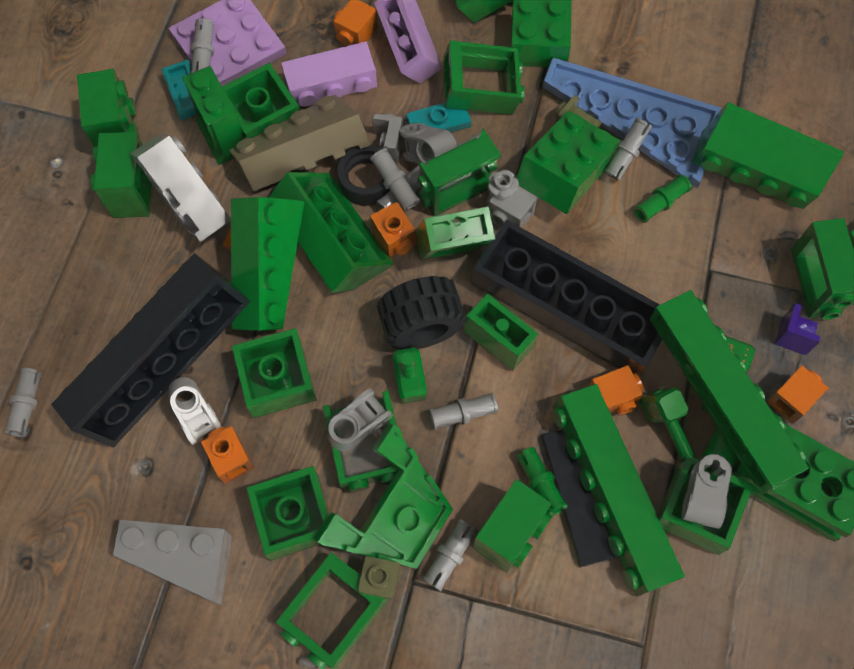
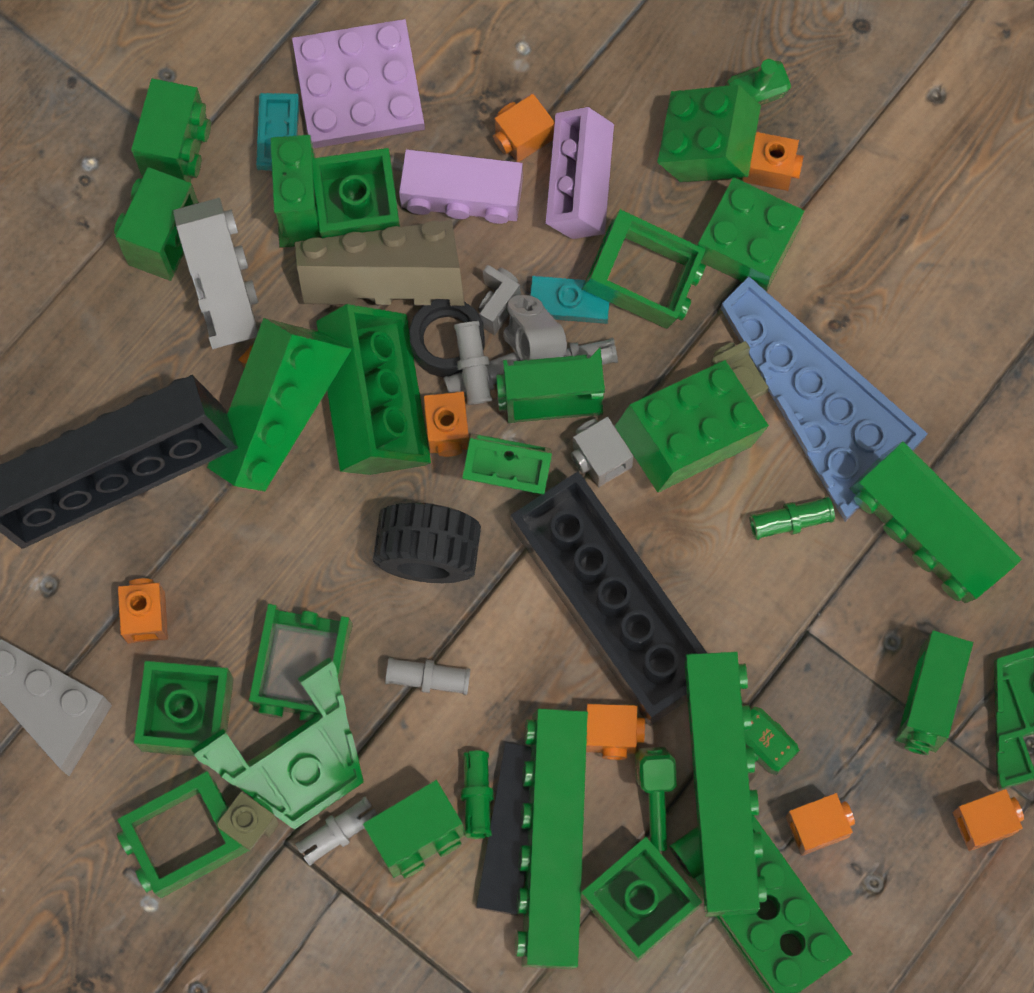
camera: 25 degrees right, 5 degrees up
(193, 415) = (124, 551): white piece -> none
(202, 46) = (317, 92): light grey pin -> none
(274, 373) = (232, 541): green brick -> none
(363, 416) = (300, 638): light grey piece -> none
(409, 375) = (385, 608): green piece -> none
(500, 331) = (510, 602): green brick -> none
(502, 191) = (589, 431): light grey plate -> none
(628, 148) = (778, 438): light grey pin -> none
(706, 498) = (633, 892): light grey piece -> none
(797, 332) = (866, 751): dark purple panel -> none

